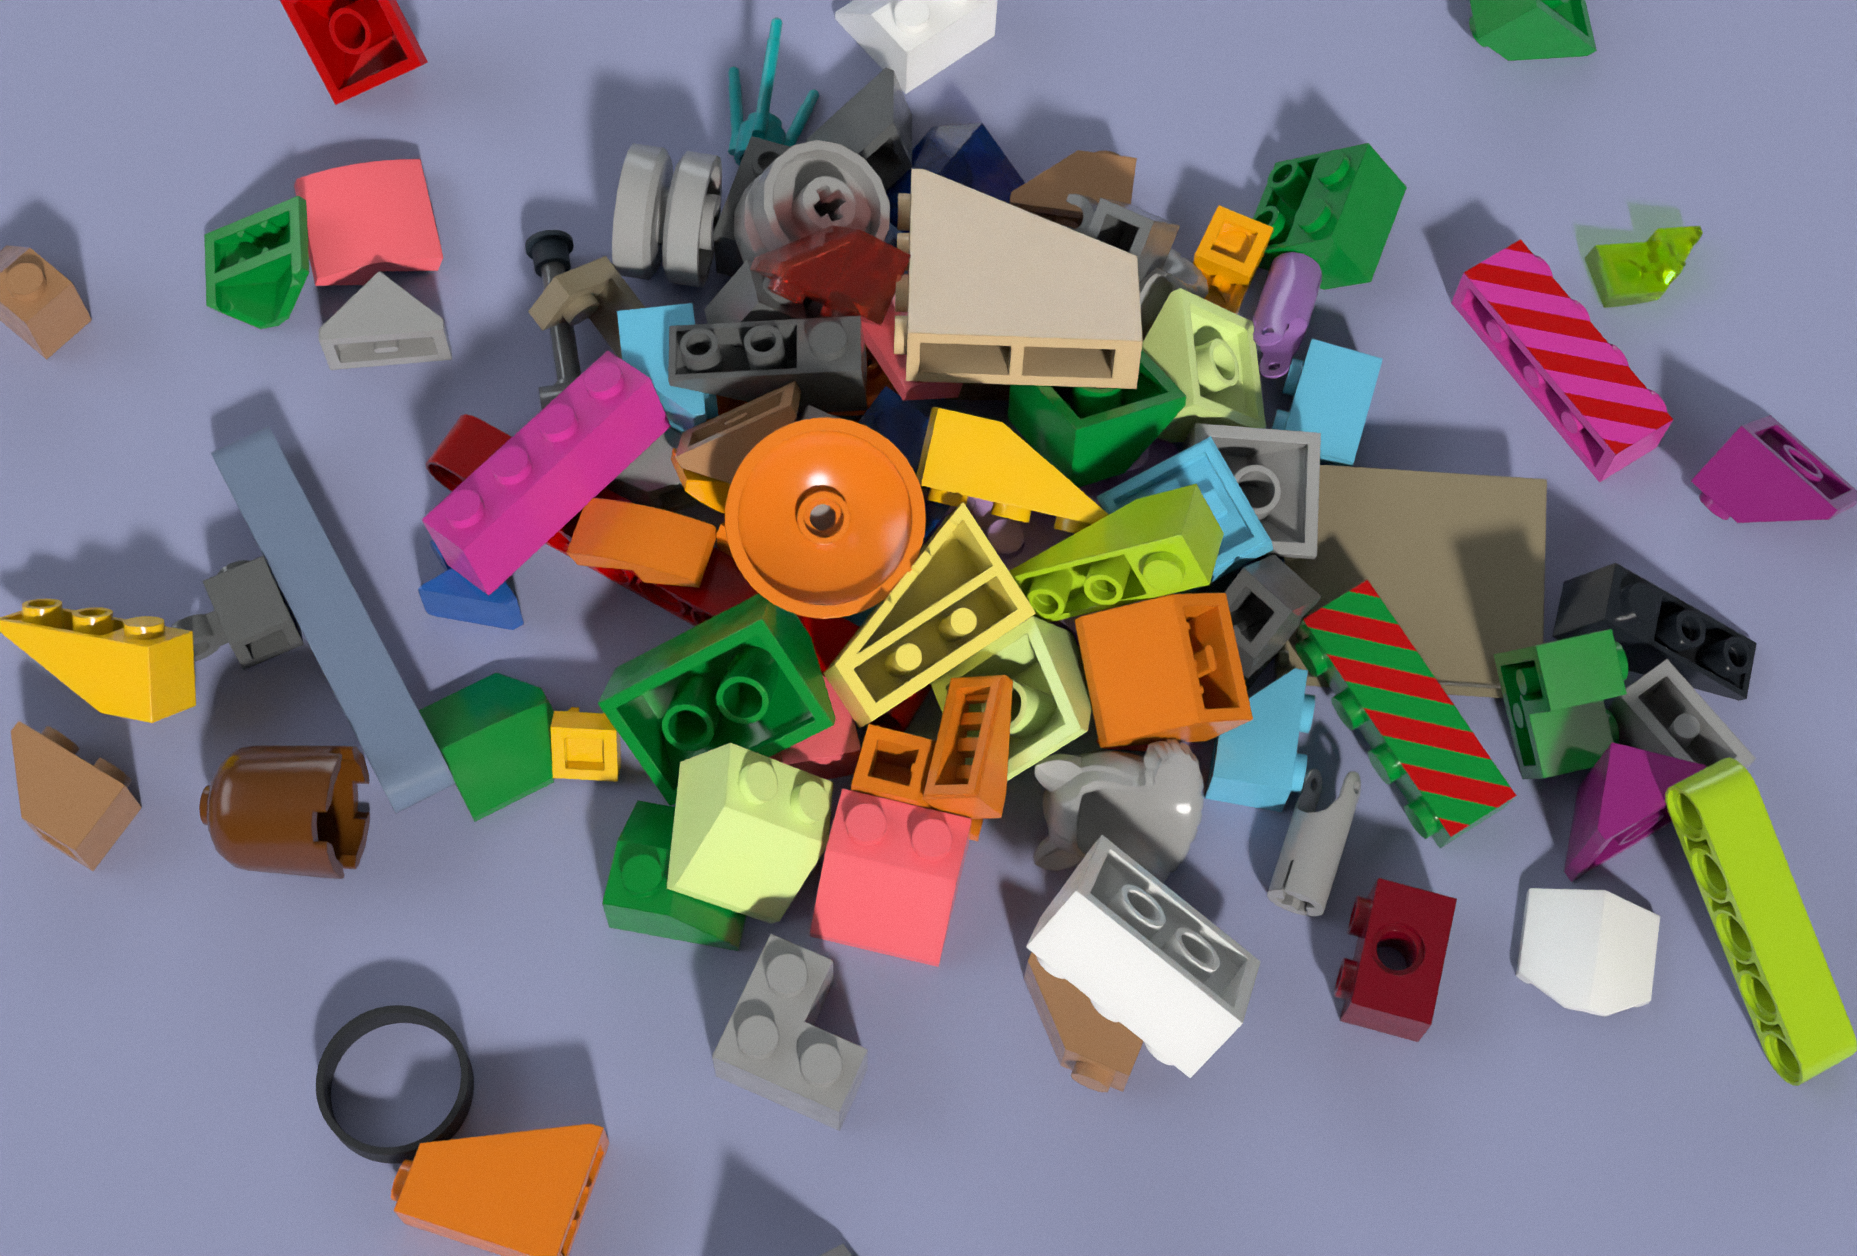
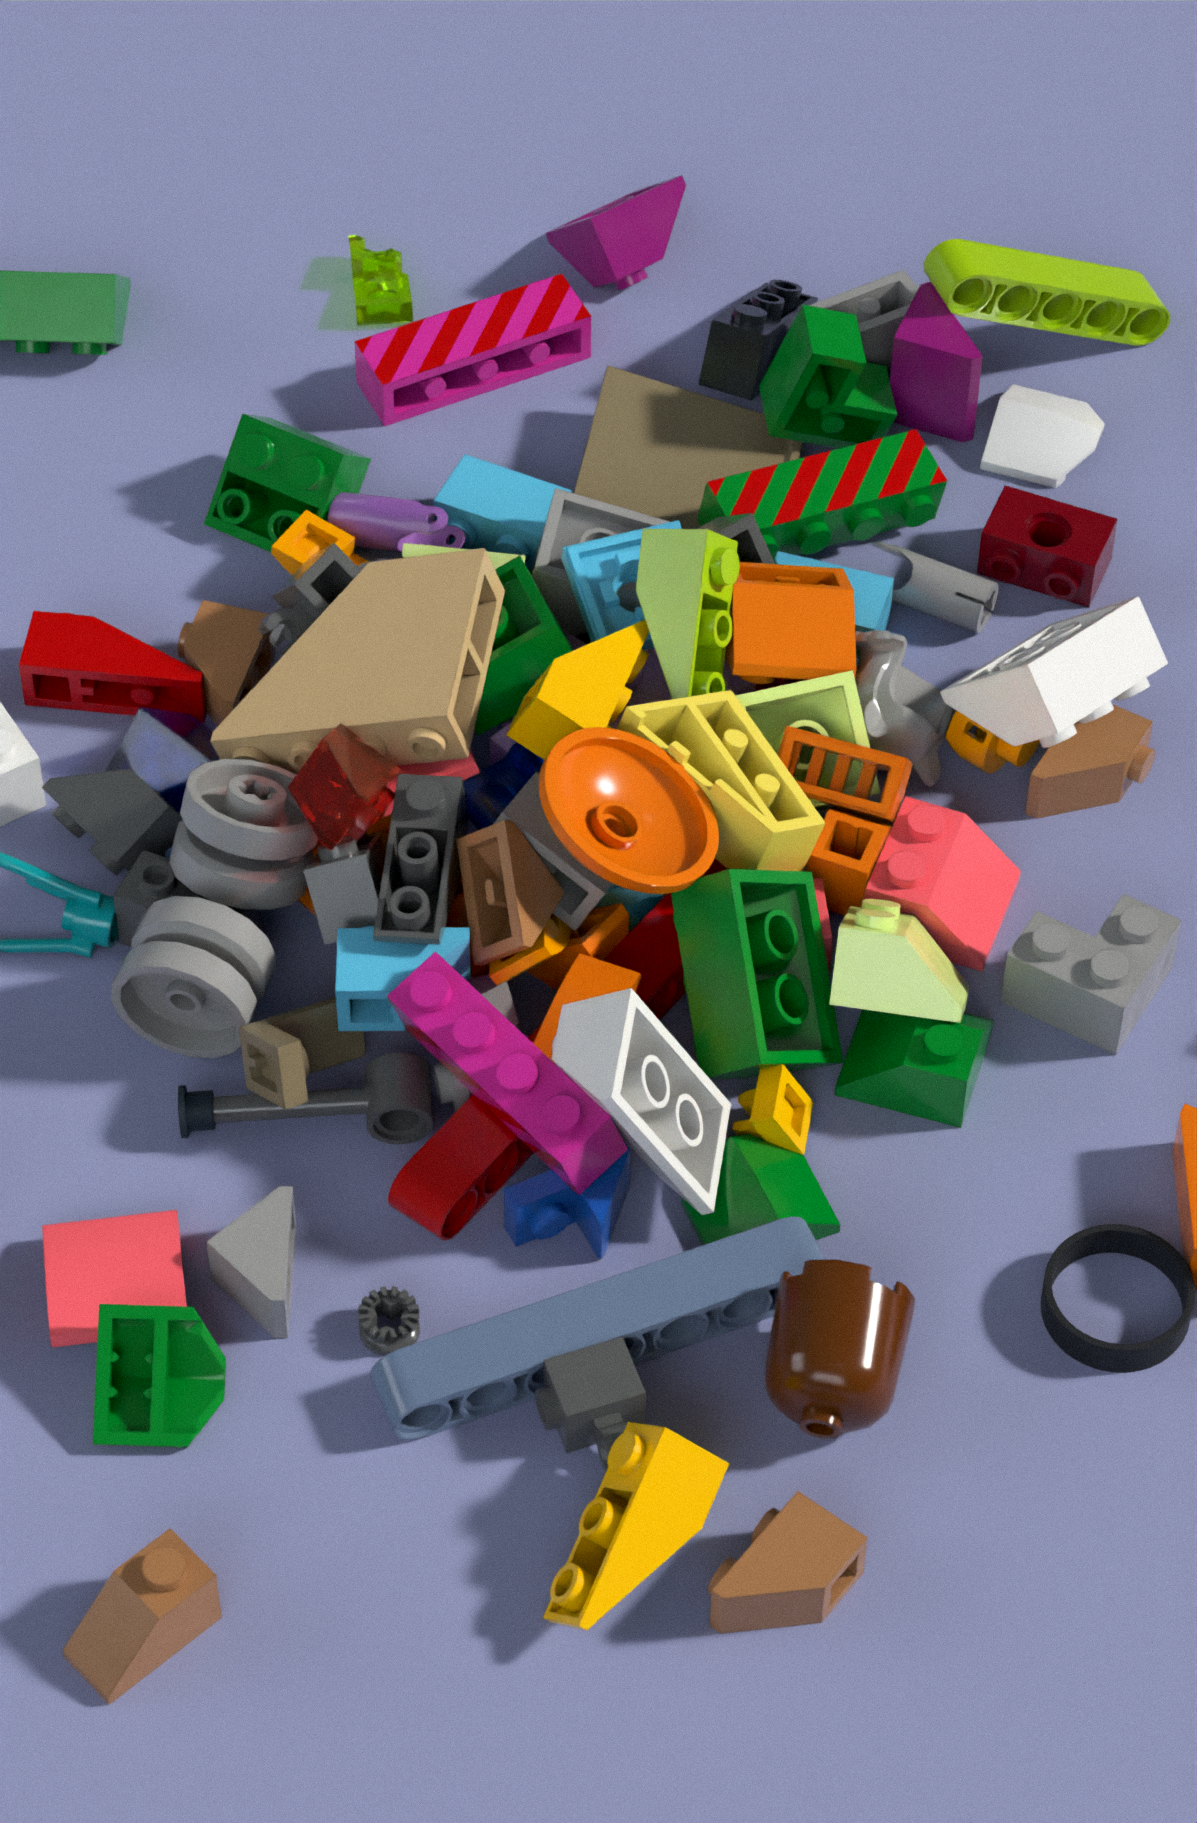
camera: 80 degrees left, 15 degrees down
(342, 426) = (391, 1305): none -> dark grey bush
(522, 595) = (648, 1088): none -> white slope
(1060, 88) = (98, 668): none -> red slope

